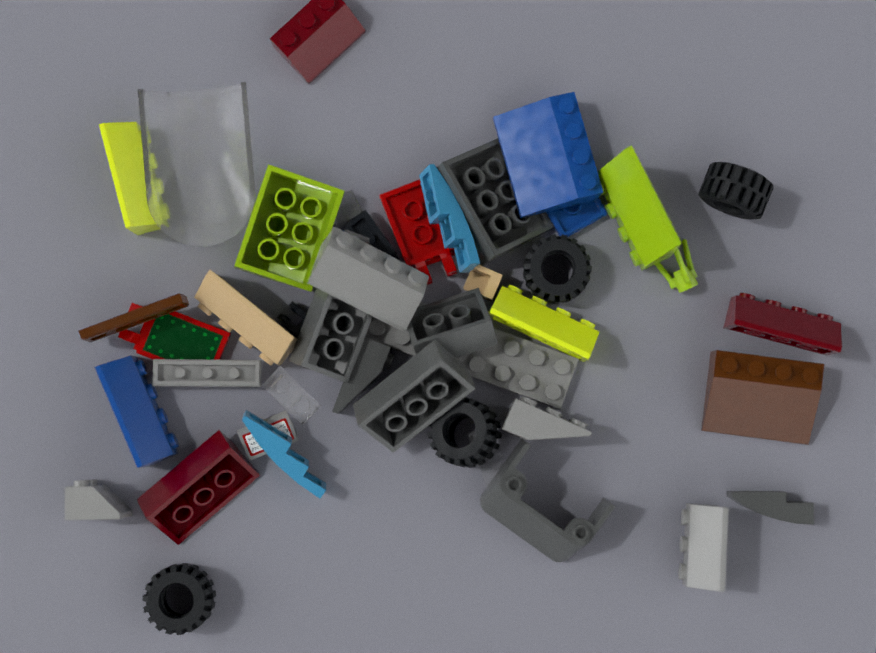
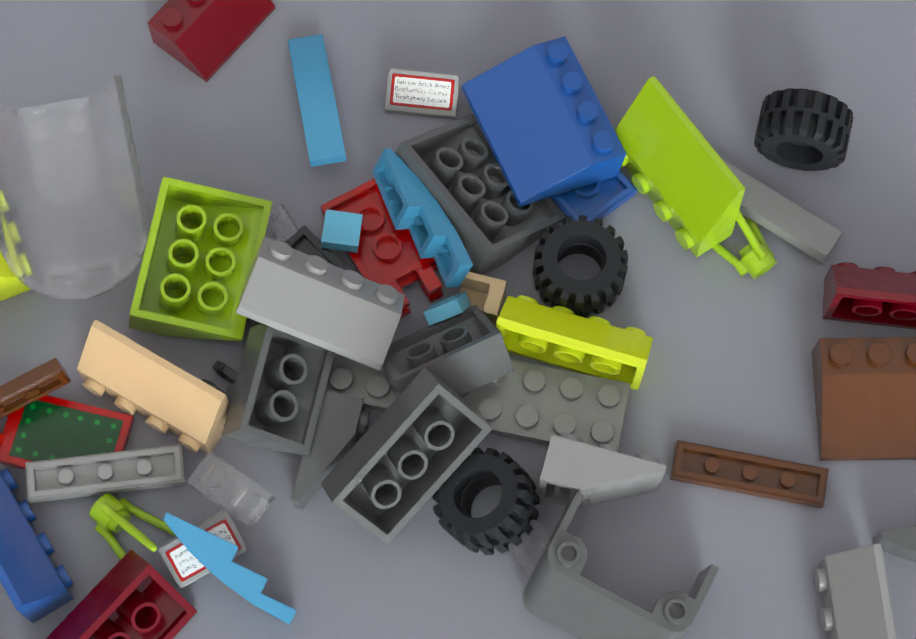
camera: 15 degrees left, 15 degrees down
(209, 403) = (114, 516): none -> lime plant
(386, 113) = (317, 100): none -> dark azure slope
(391, 219) = (341, 231): none -> medium azure tile
(458, 287) = (447, 308): none -> medium azure tile
(463, 117) = (422, 93): none -> slope
(650, 434) = (749, 474): none -> reddish brown tile
(705, 245) = (786, 218): none -> light grey tile

